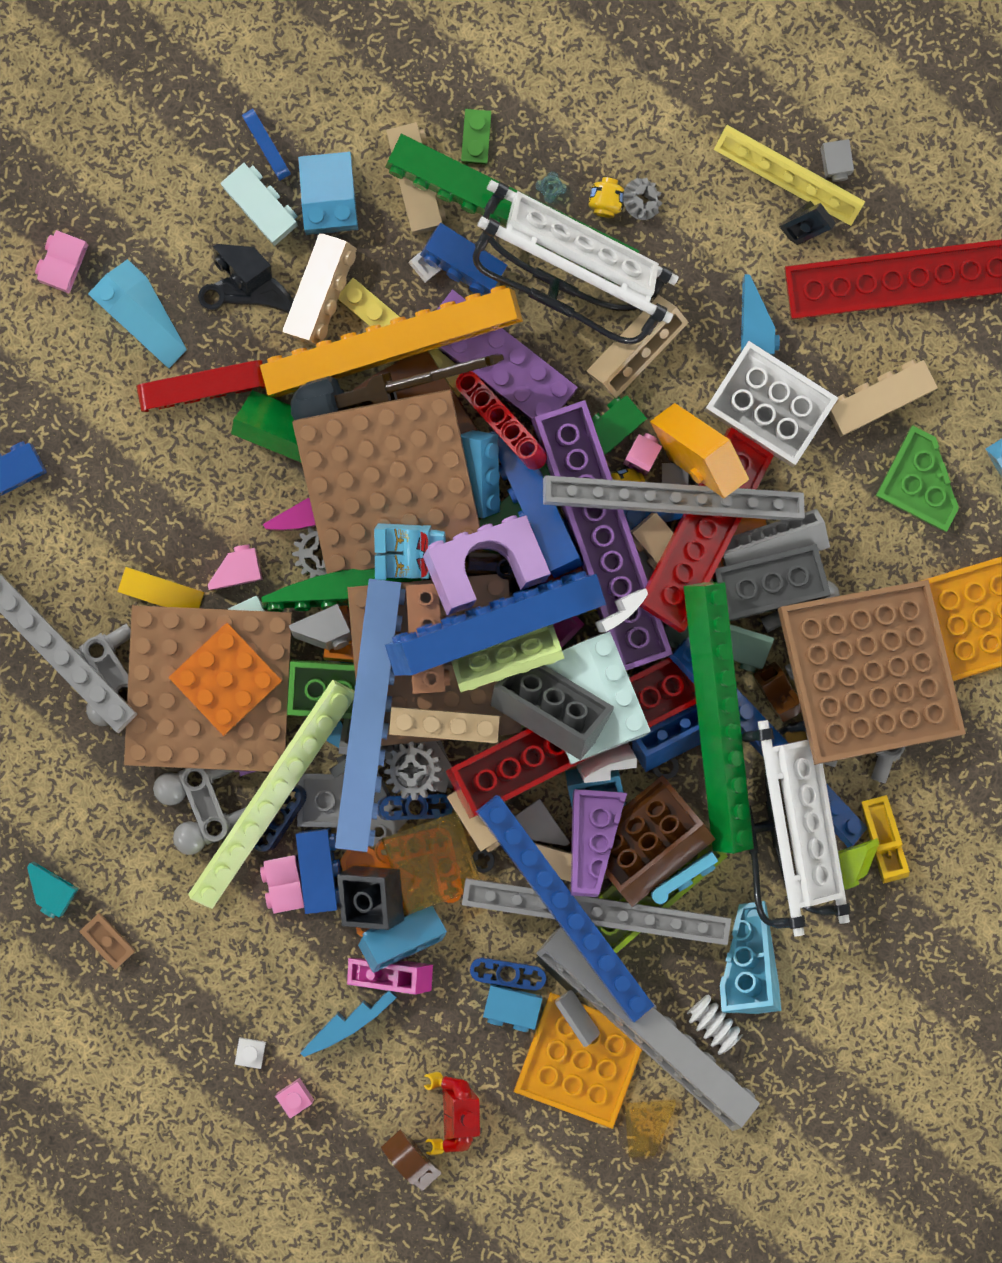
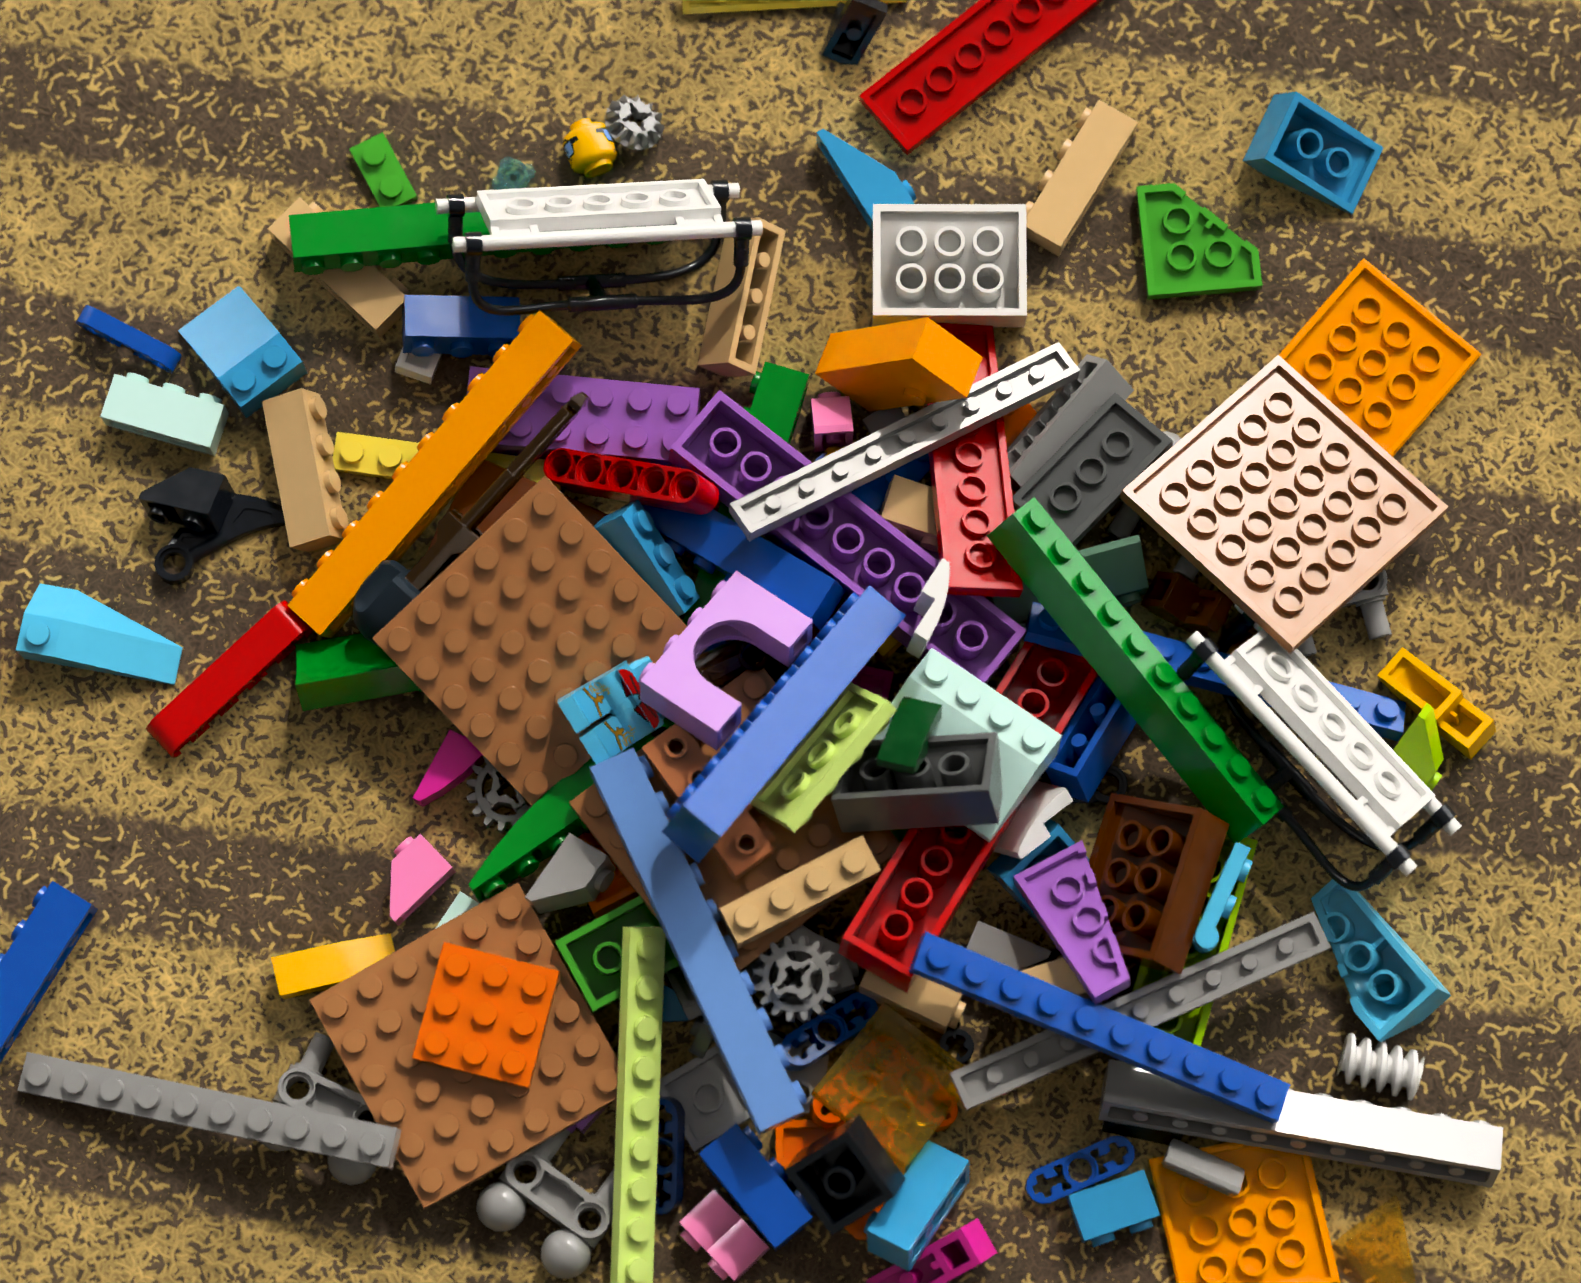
camera: 30 degrees left, 10 degrees down
(561, 677) = (908, 735): none -> dark green slope

